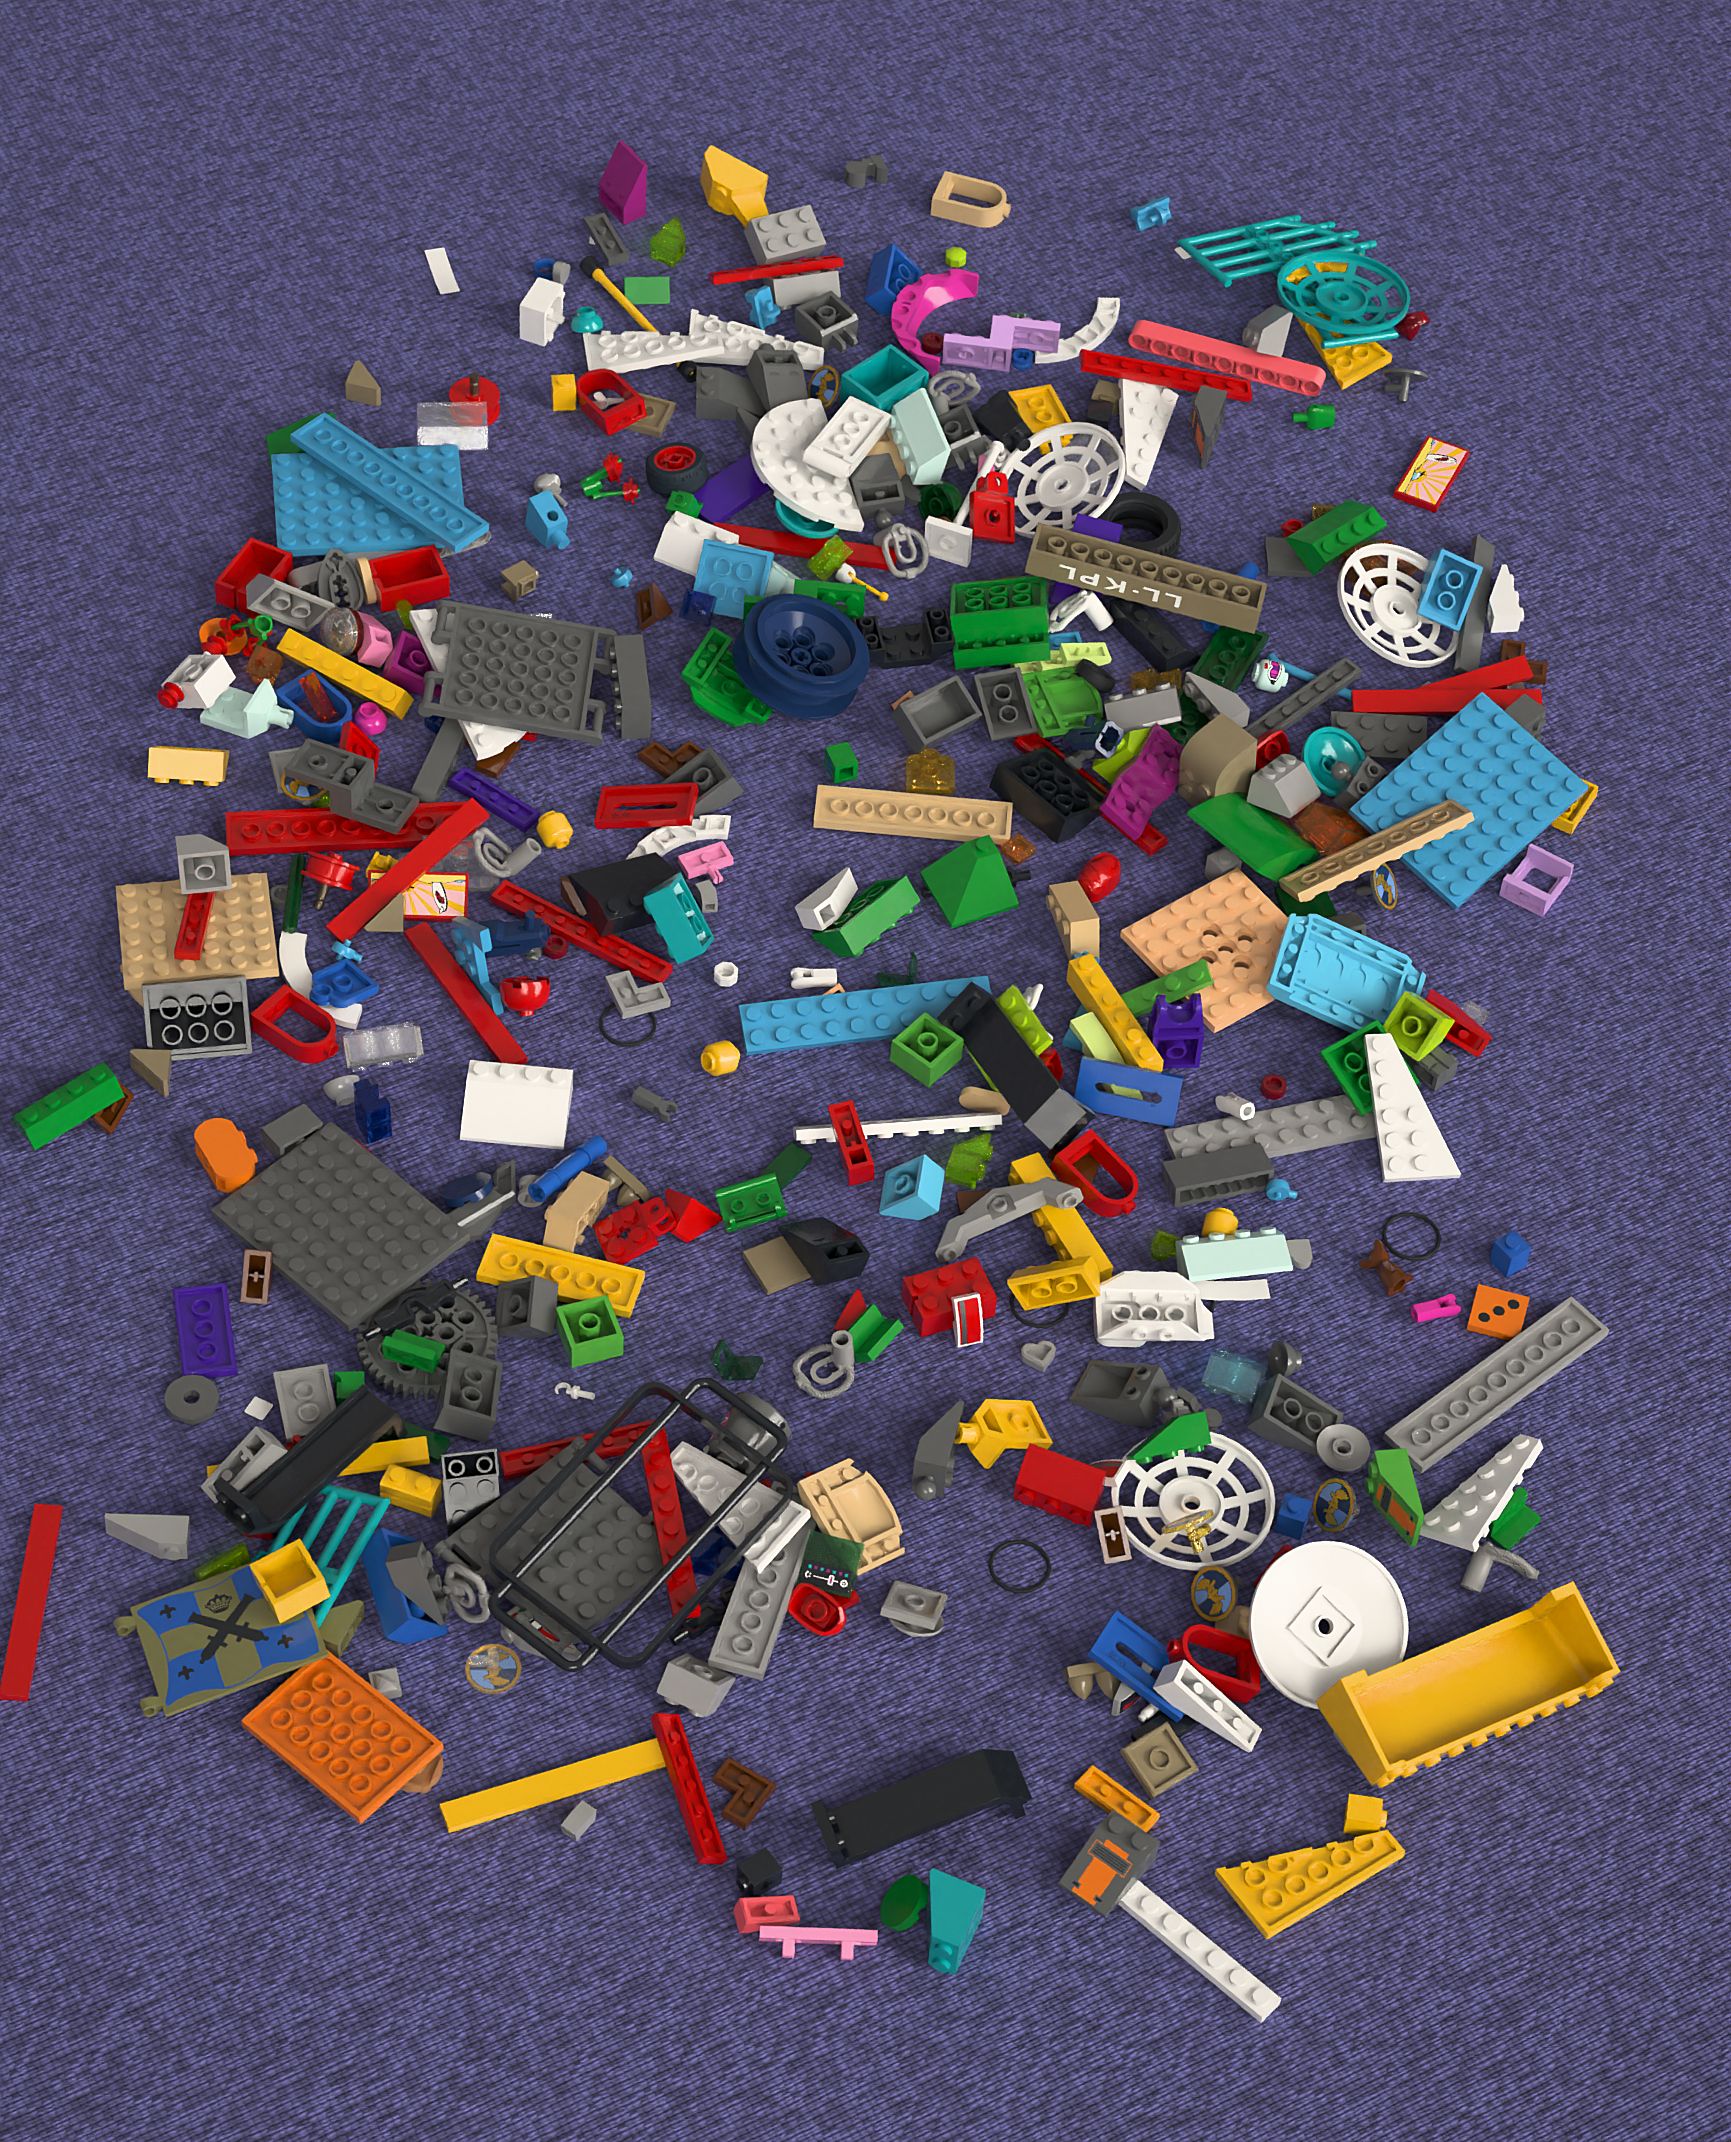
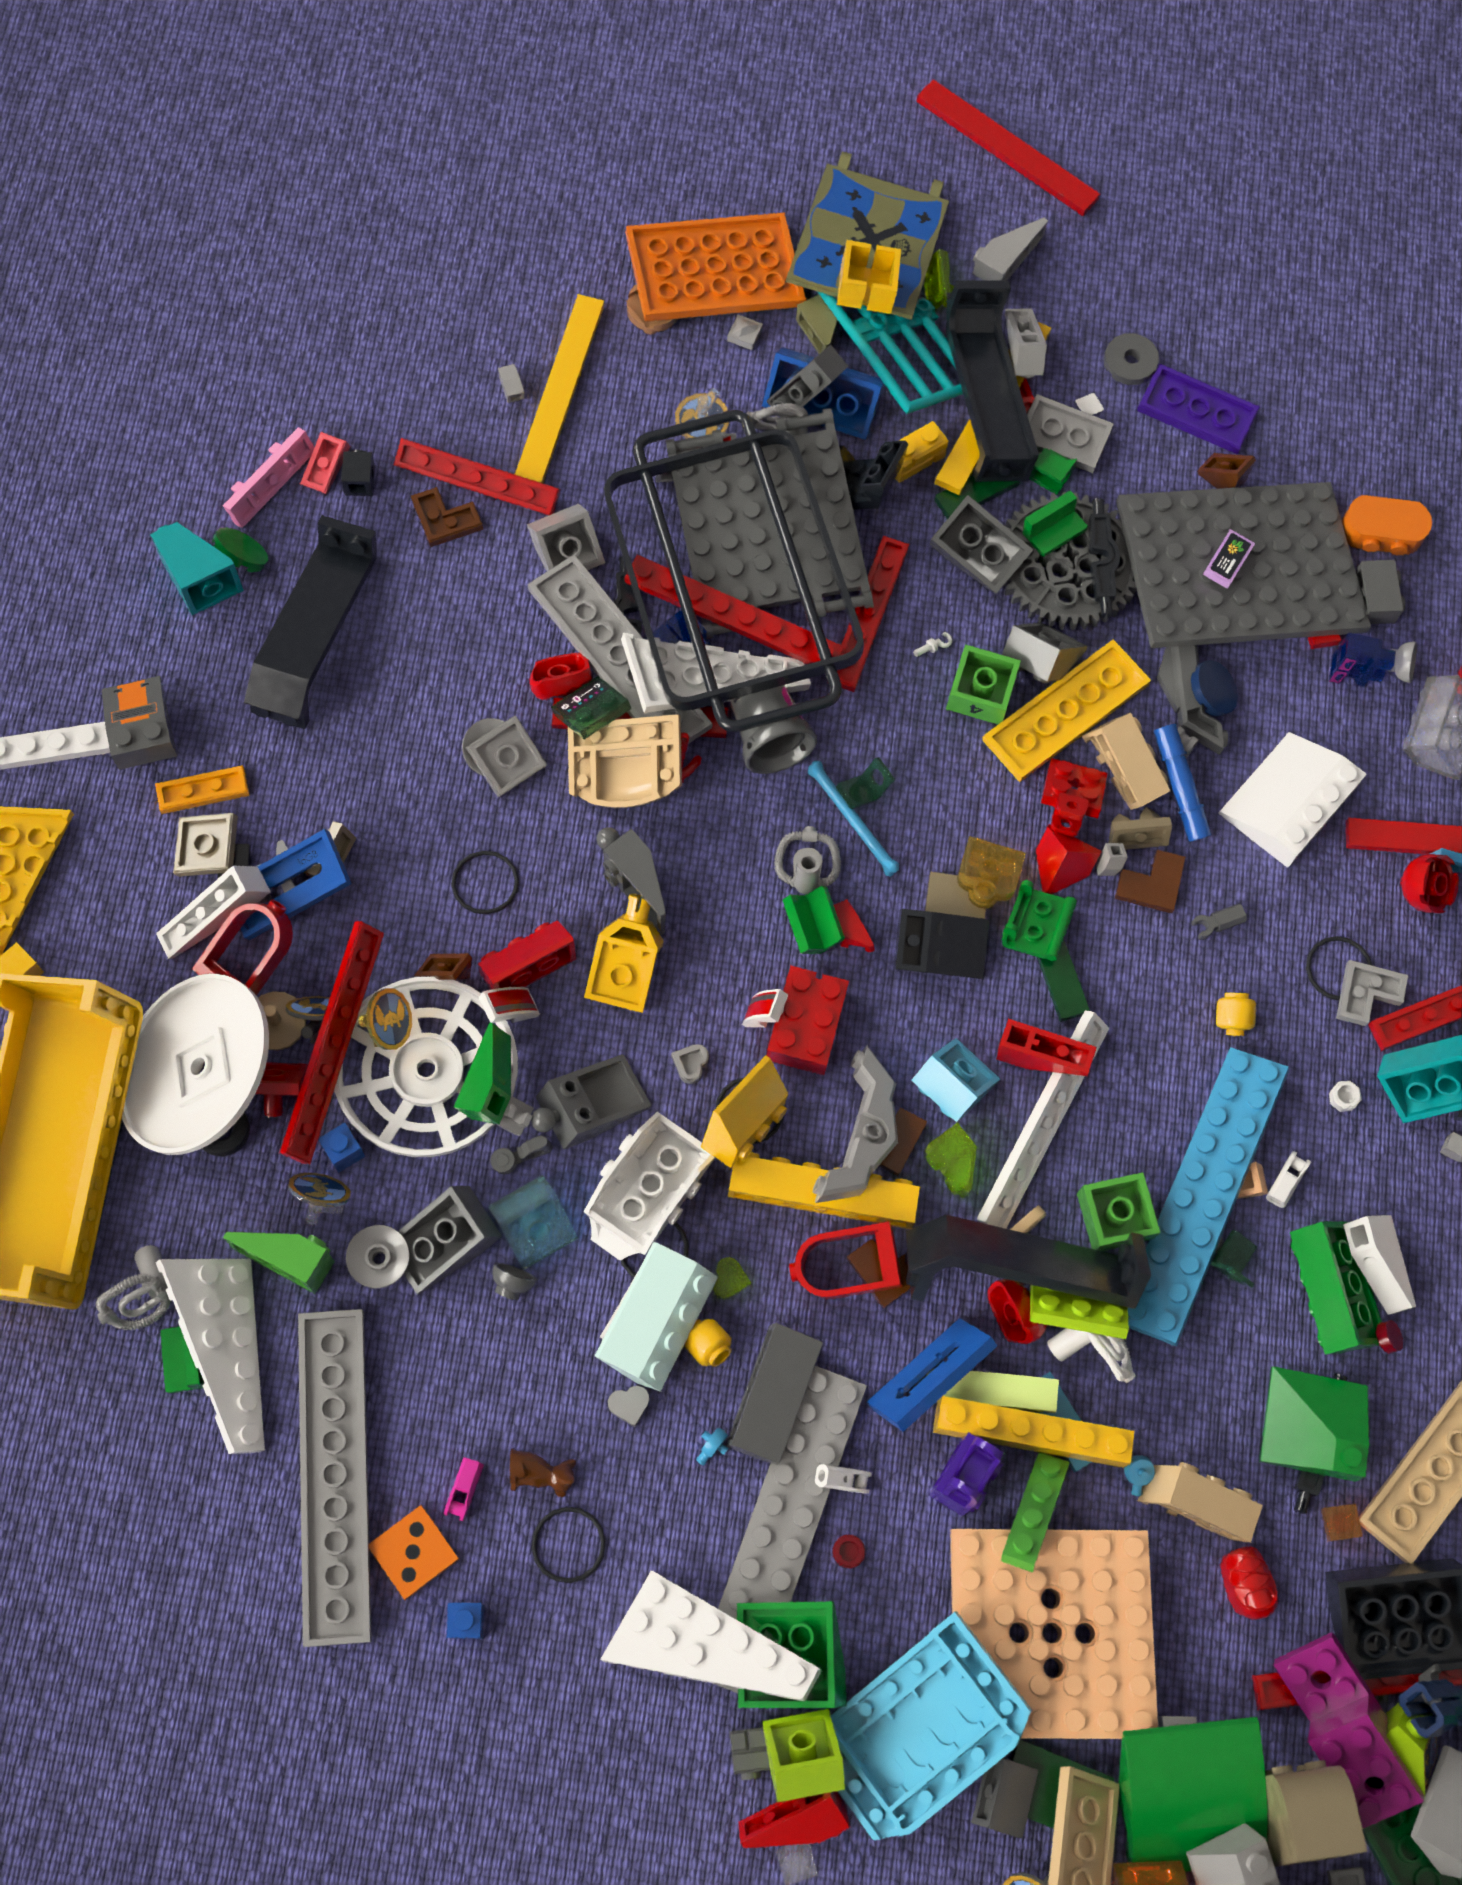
camera: 125 degrees right, 20 degrees up
(353, 1222) = (1228, 558): none -> tile
(659, 1151) = (1154, 890): none -> reddish brown tile
(663, 1180) = (1111, 859): none -> light grey piece
(739, 1250) = (989, 872): none -> clear yellow plate
(784, 1318) = (889, 865): none -> dark azure piece
(875, 877) = (1389, 1336): none -> dark red tile
(1231, 1553) = (332, 1043): none -> red tile

